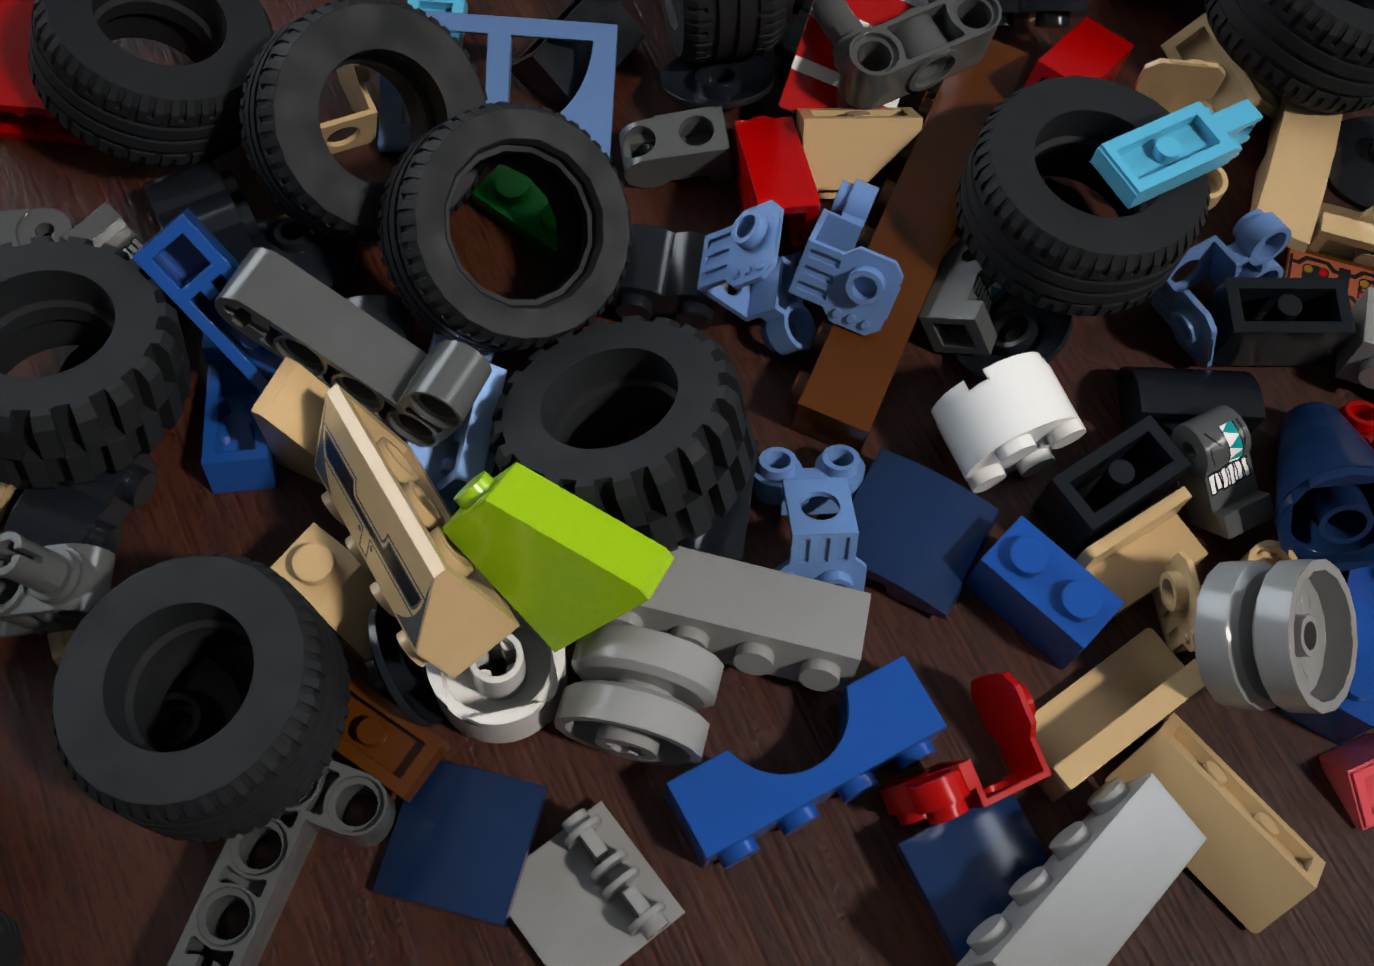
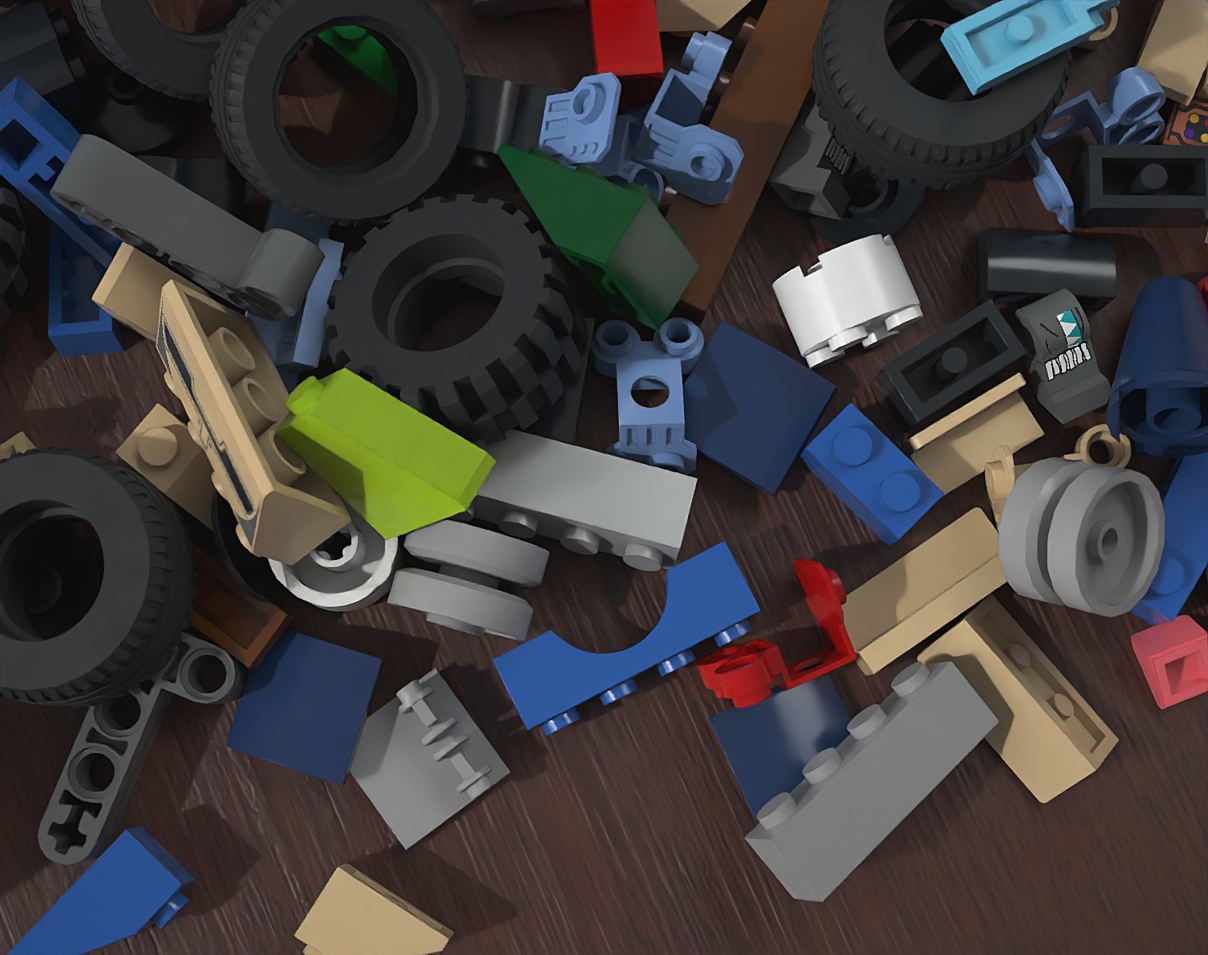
camera: 10 degrees right, 15 degrees up
(782, 349) = (607, 234): none -> dark green slope

